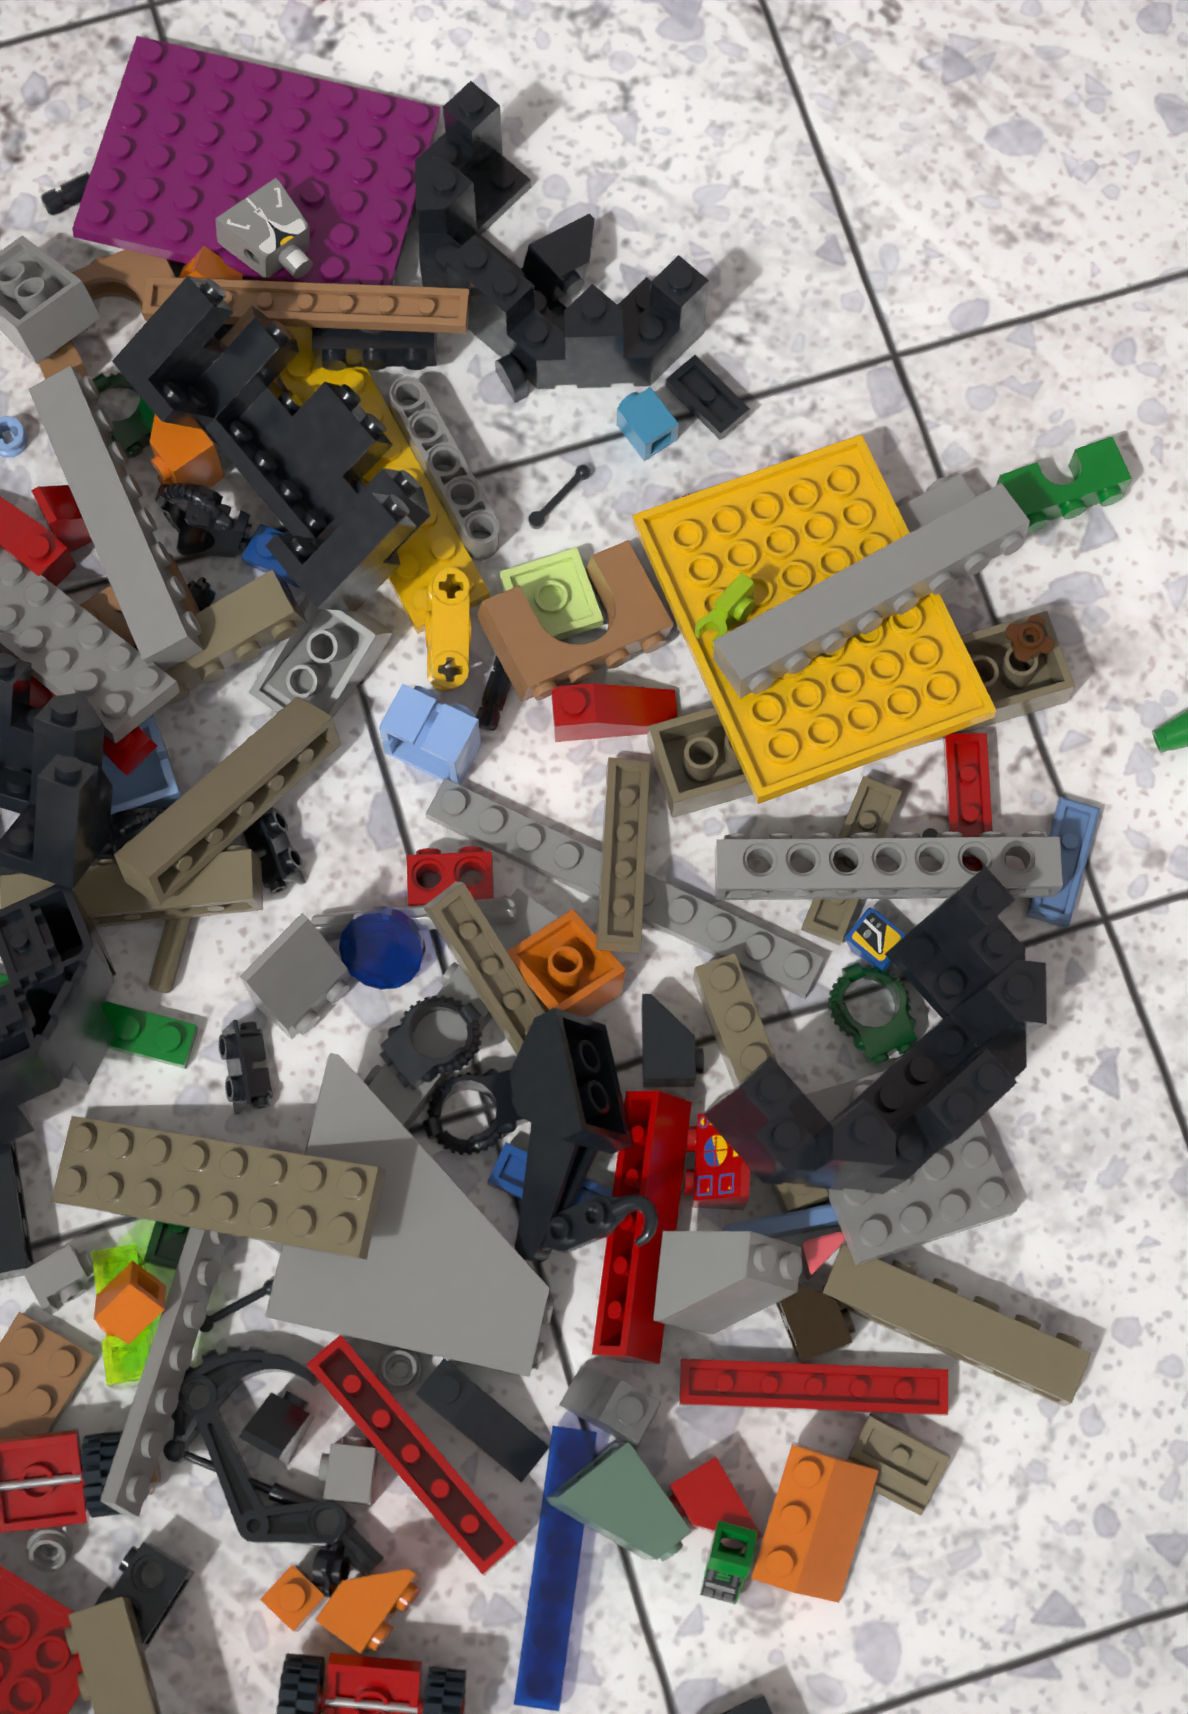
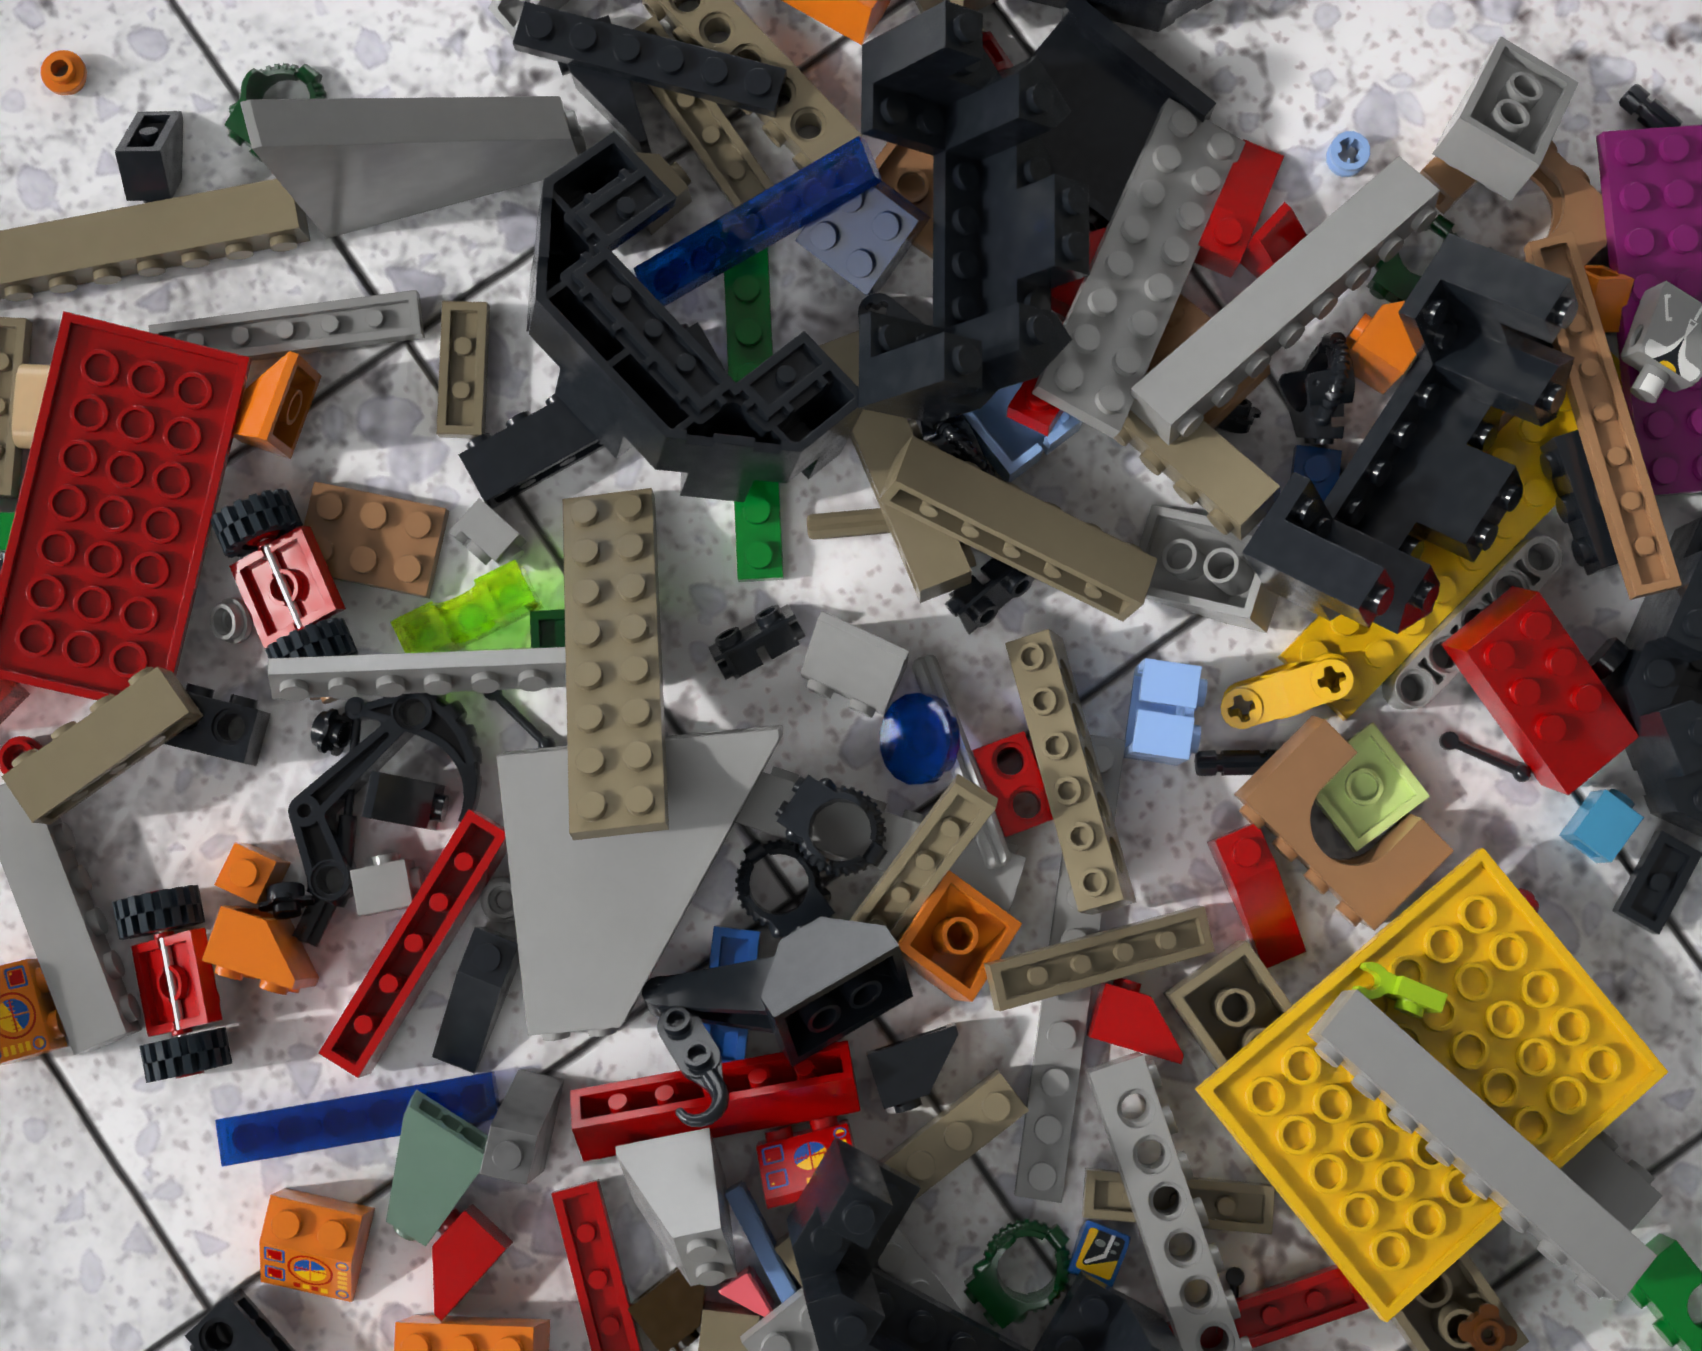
camera: 80 degrees right, 10 degrees up
(129, 1303) = (472, 616): orange brick -> none
(188, 1482) = (331, 732): none -> black plate
(455, 826) = (1070, 773): none -> dark tan brick
(517, 429) = (1540, 690): none -> red brick
(660, 1645) = (314, 1243): none -> orange slope
(687, 848) = (1132, 1021): none -> red slope
(728, 1566) = (402, 1293): green leg -> none

